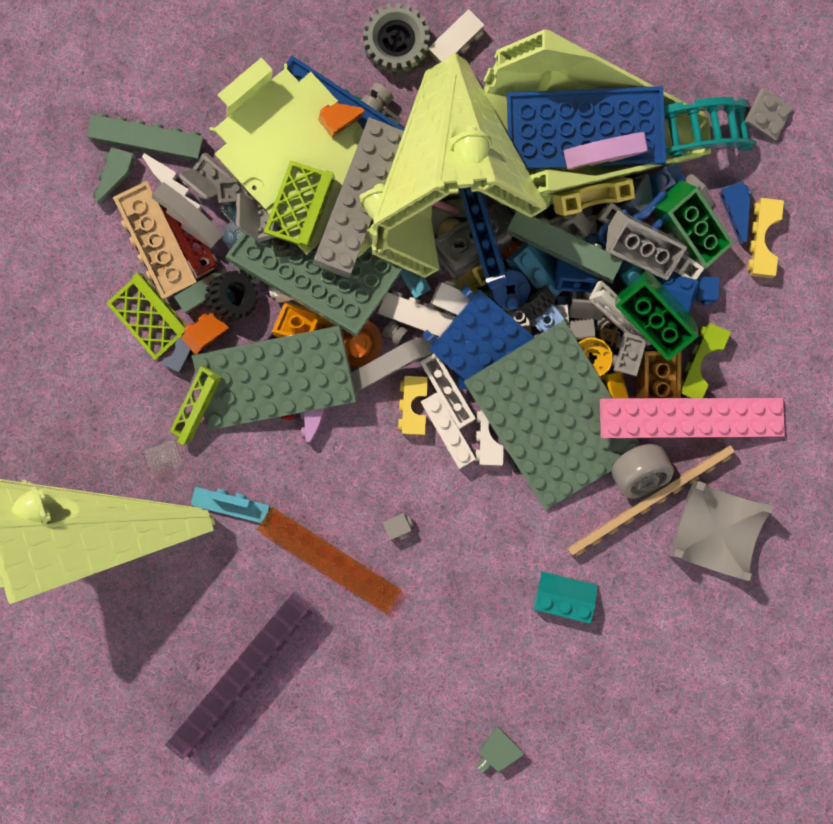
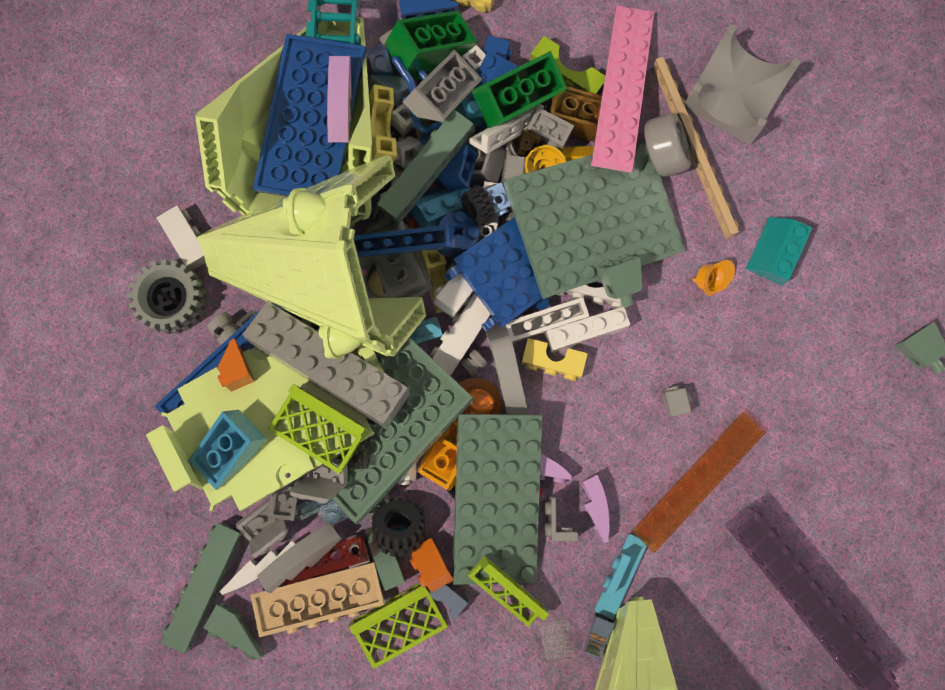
camera: 80 degrees left, 5 degrees down
(173, 494) = (598, 636): none -> sand blue leg
(256, 444) = (563, 533): none -> light grey bracket
(266, 129) = (226, 447): none -> slope
(285, 471) = (597, 506): none -> lavender slope
(499, 450) = (622, 279): none -> sand green torso
(524, 542) = (715, 277): none -> light orange piece

